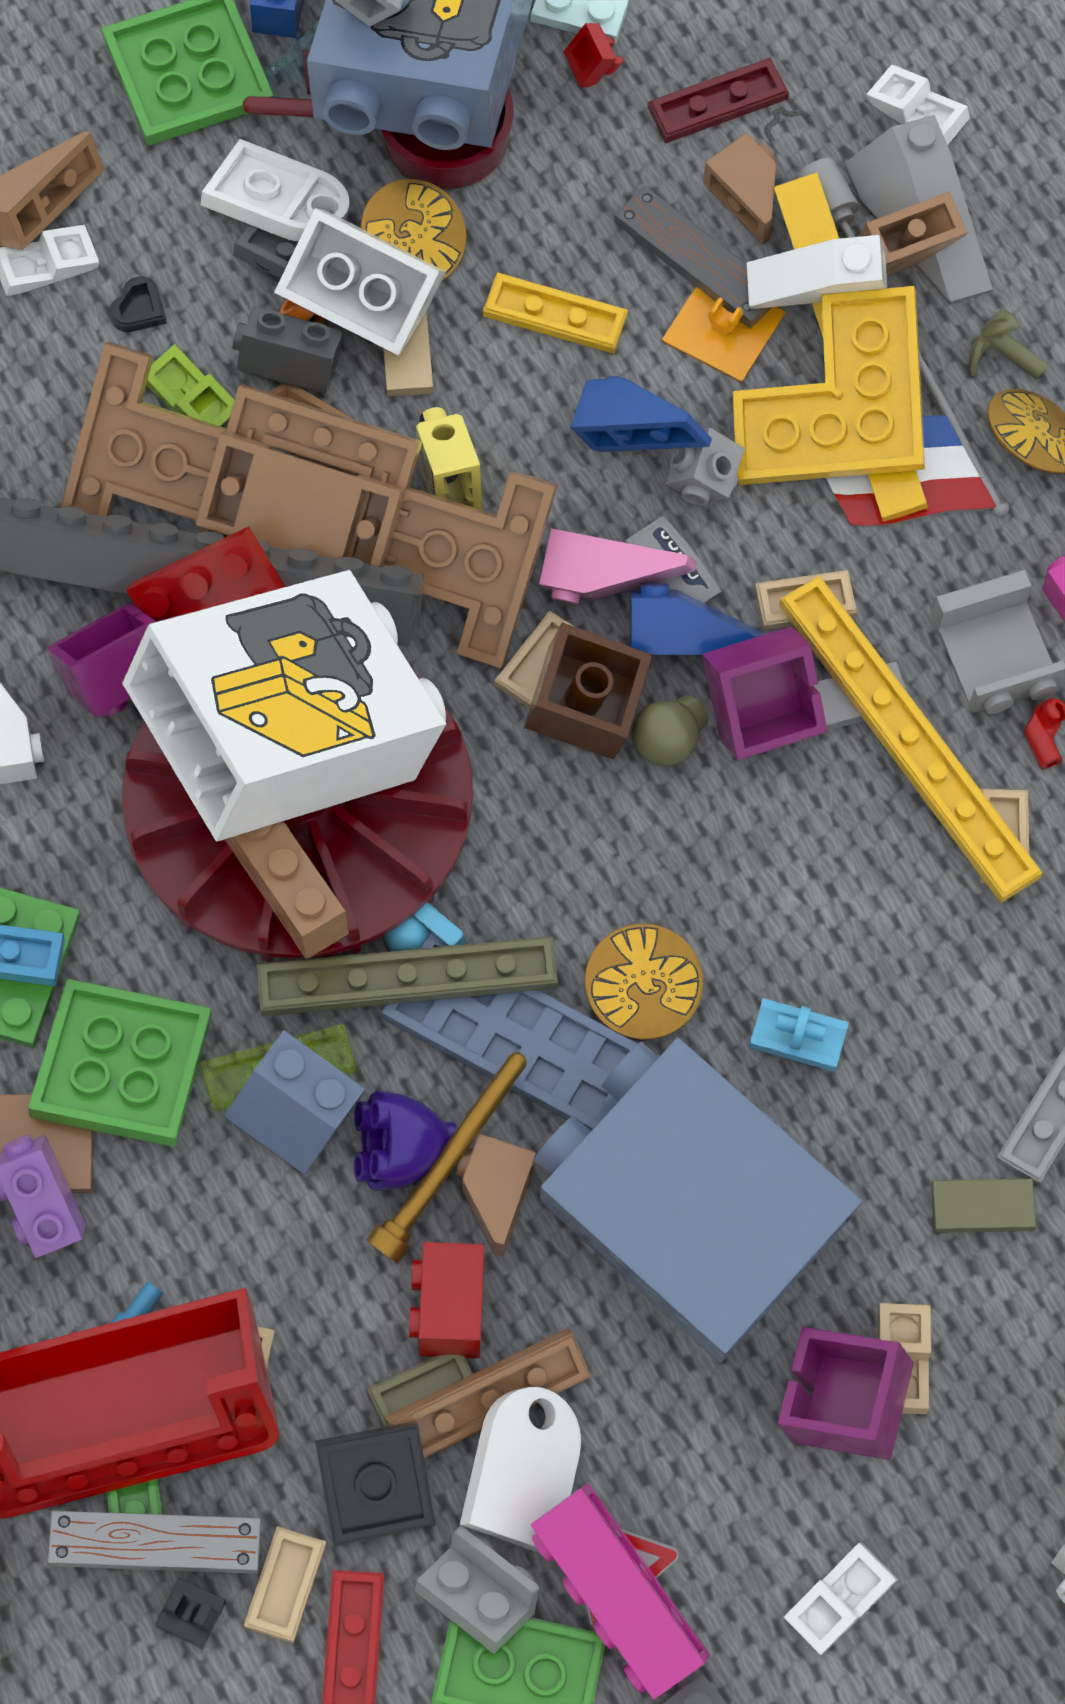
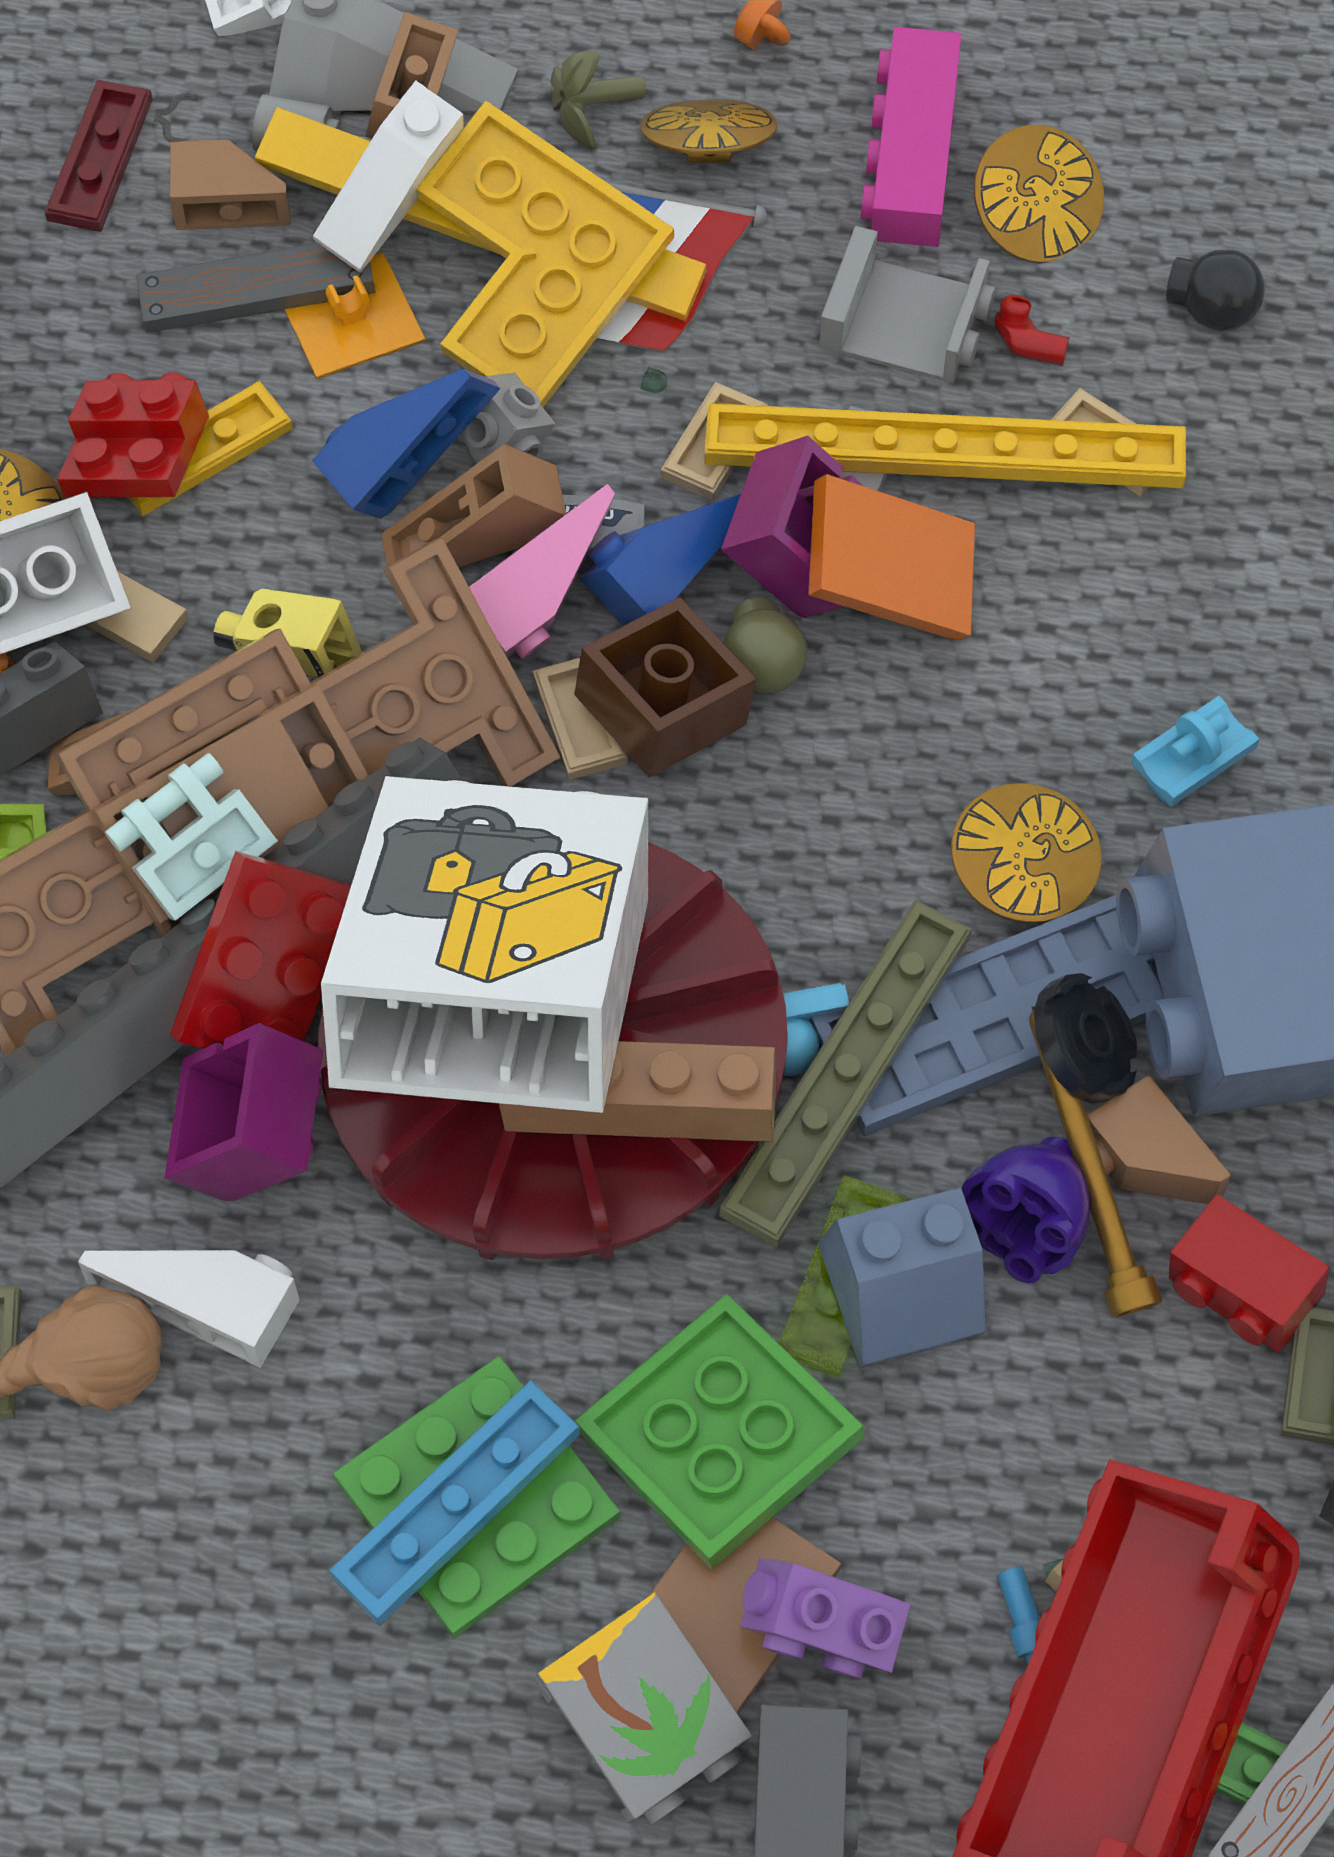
camera: 50 degrees left, 5 degrees down
(229, 508) = (199, 855): none -> light aqua plate
(521, 269) = (133, 436): none -> red plate
(526, 1096) = (1085, 1038): none -> black tile
(622, 500) = (484, 510): none -> medium nougat slope
(785, 759) = (891, 558): none -> orange tile
(822, 534) = (654, 381): none -> clear green piece

